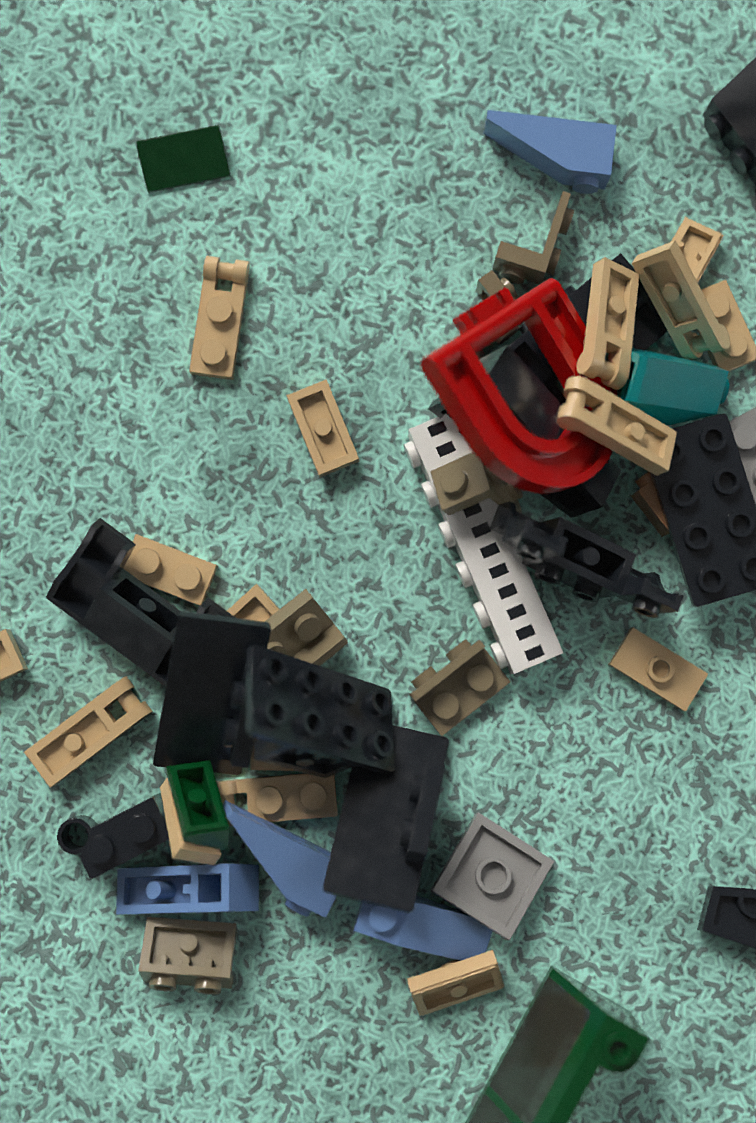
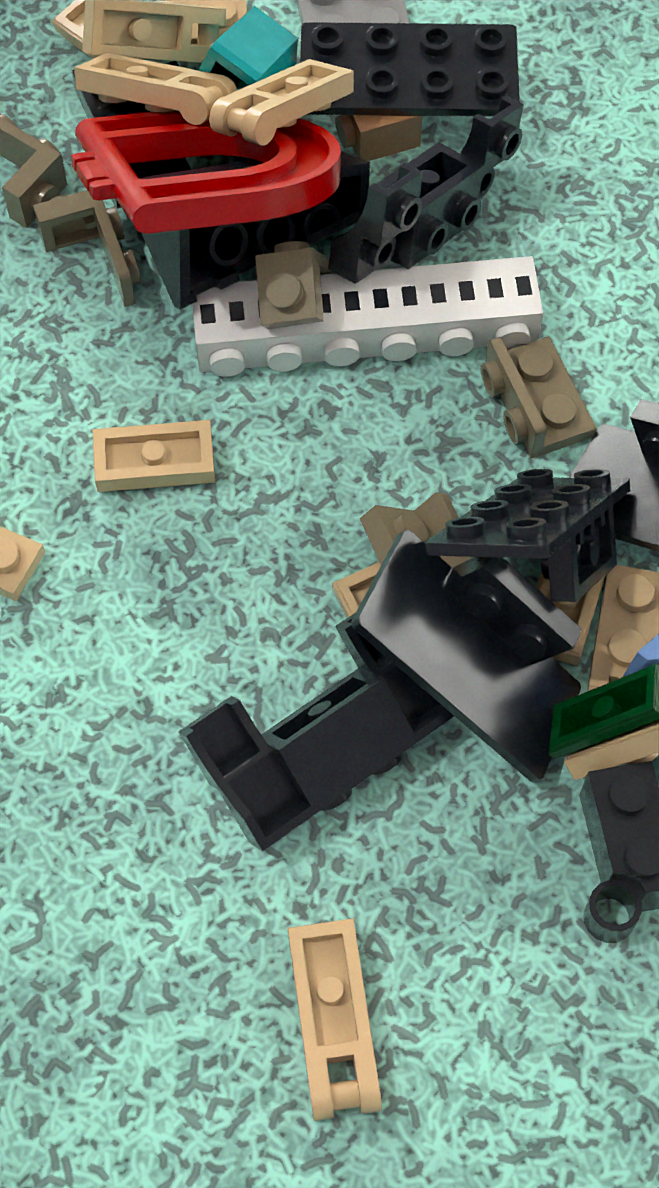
camera: 75 degrees left, 20 degrees down
(86, 733) = (471, 864): tan plate -> none
(170, 570) = (285, 682): tan plate -> none
(658, 669) = (577, 187): tan plate -> none

